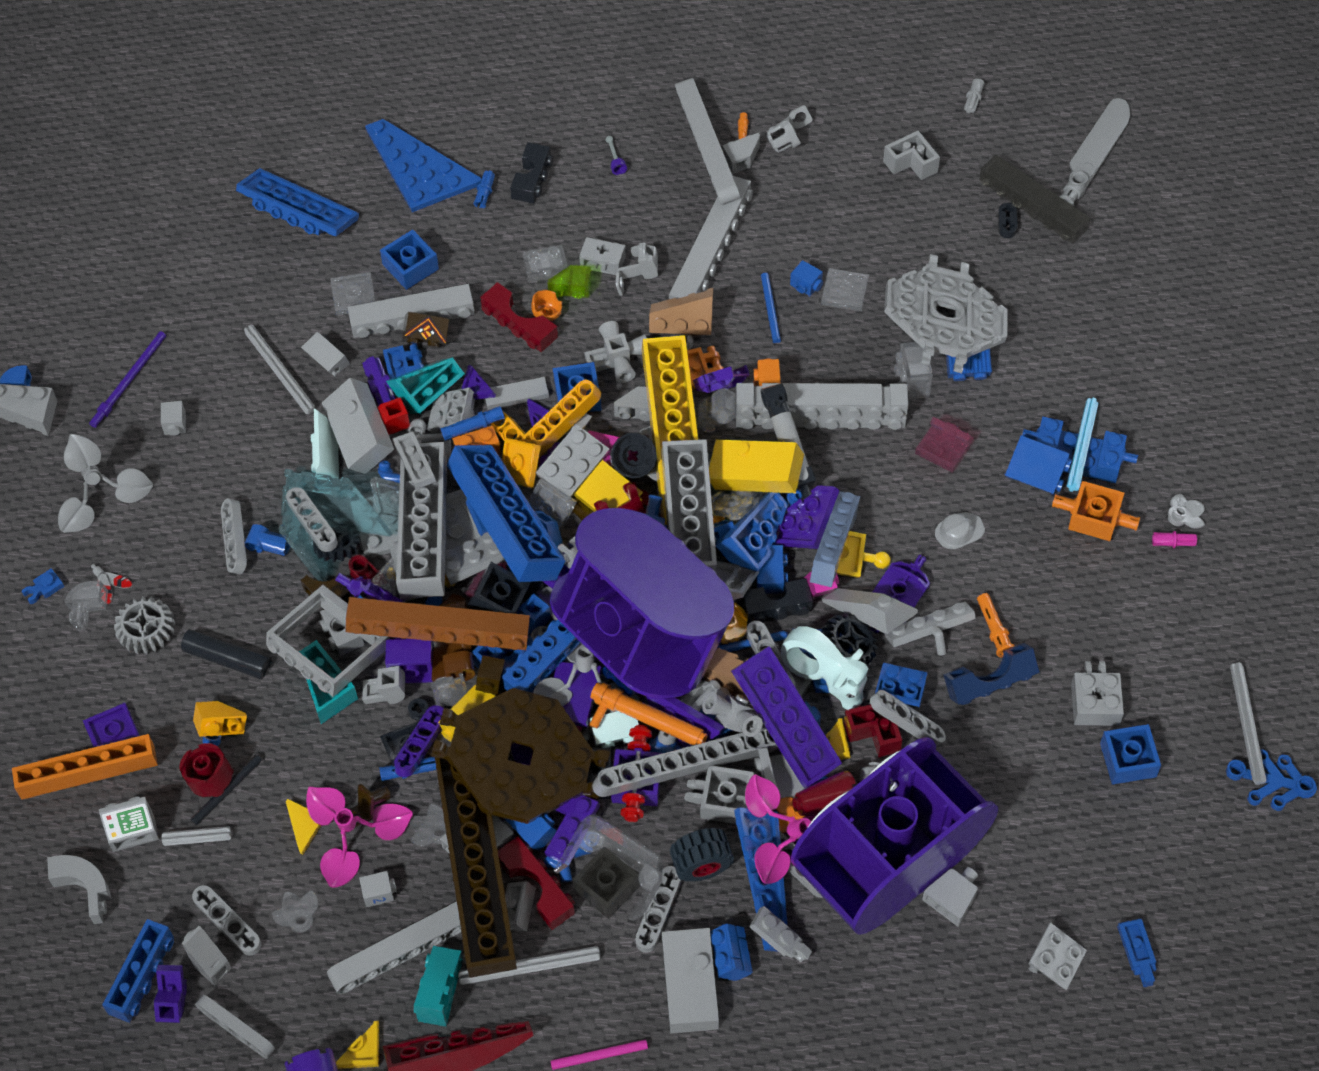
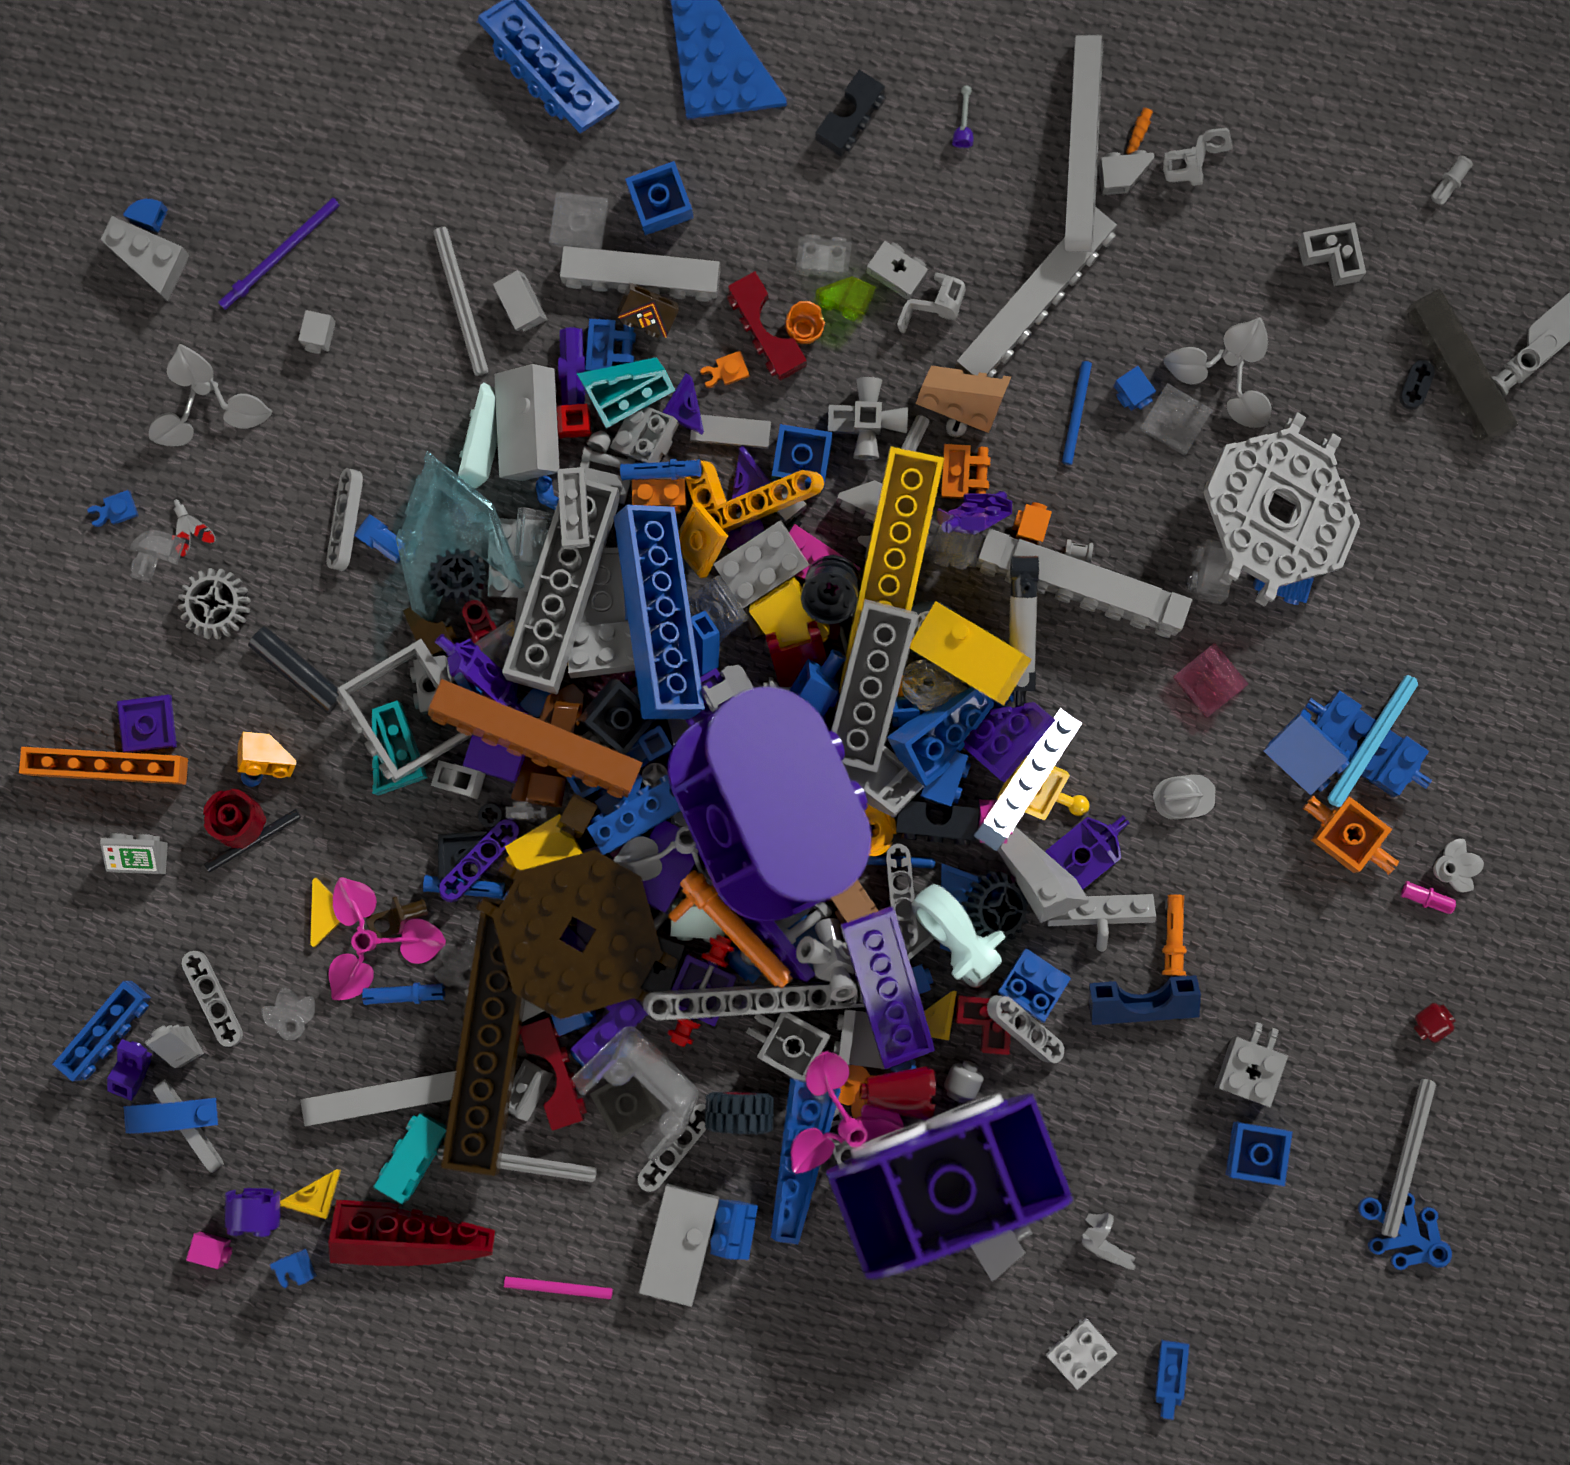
camera: 25 degrees right, 25 degrees up
(77, 871) = (77, 899): light grey arch -> none
(196, 836) = (206, 886): light grey axle -> none
(213, 1014) = (170, 1116): none -> blue arch
(311, 519) = (436, 541): light grey beam -> none
(377, 888) = (381, 1021): light grey brick -> none
(392, 862) = (404, 994): none -> blue pin
(484, 189) = (785, 117): blue axle -> none
(498, 354) = (730, 369): none -> orange plate
(779, 935) = (790, 1230): light grey hinge -> none
(870, 210) = (1241, 342): none -> light grey plant
(1029, 853) = (1095, 1241): none -> light grey hair
(1220, 621) = (1434, 1022): none -> dark red head

